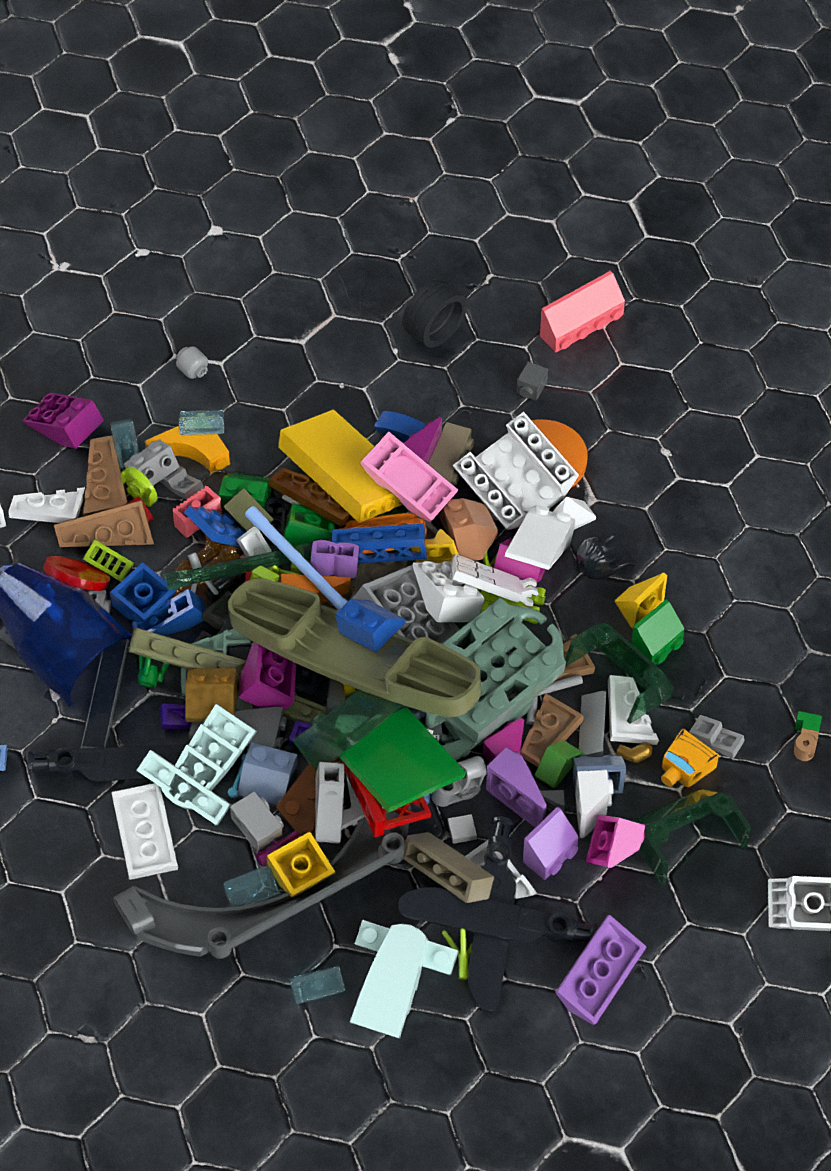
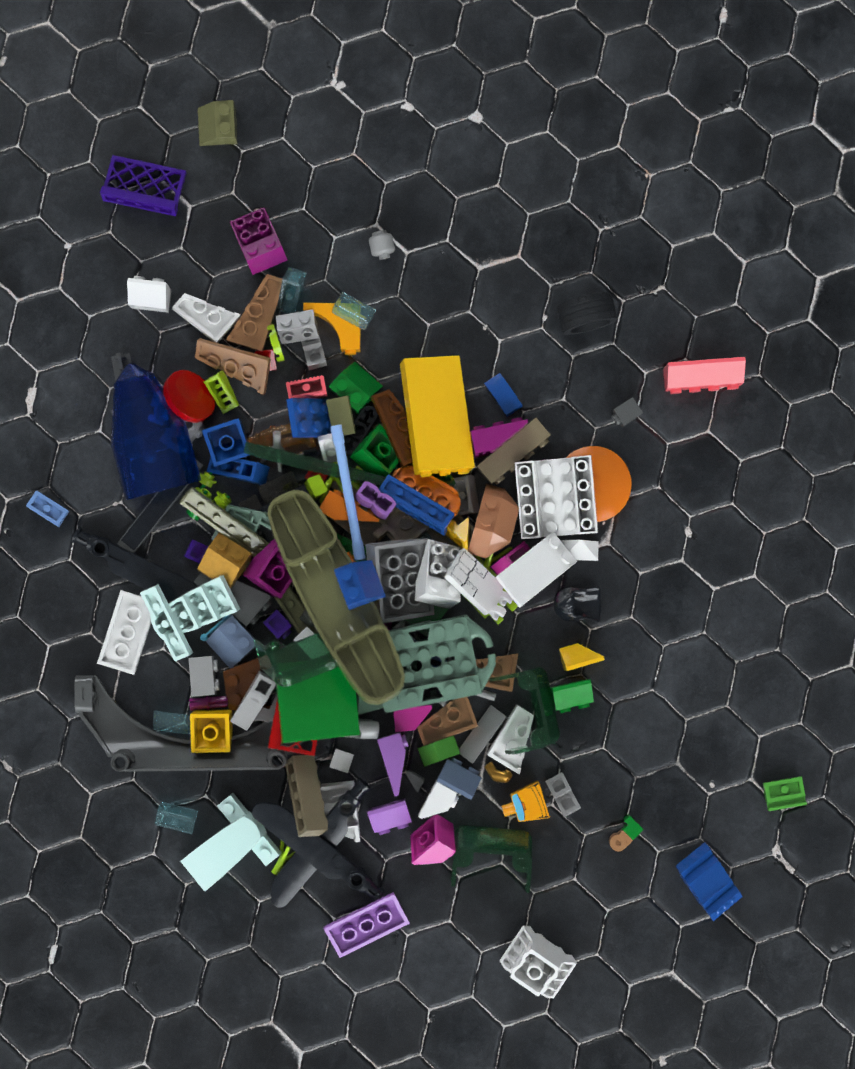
camera: 30 degrees right, 30 degrees up
(408, 477) = (468, 465): bright pink slope -> none

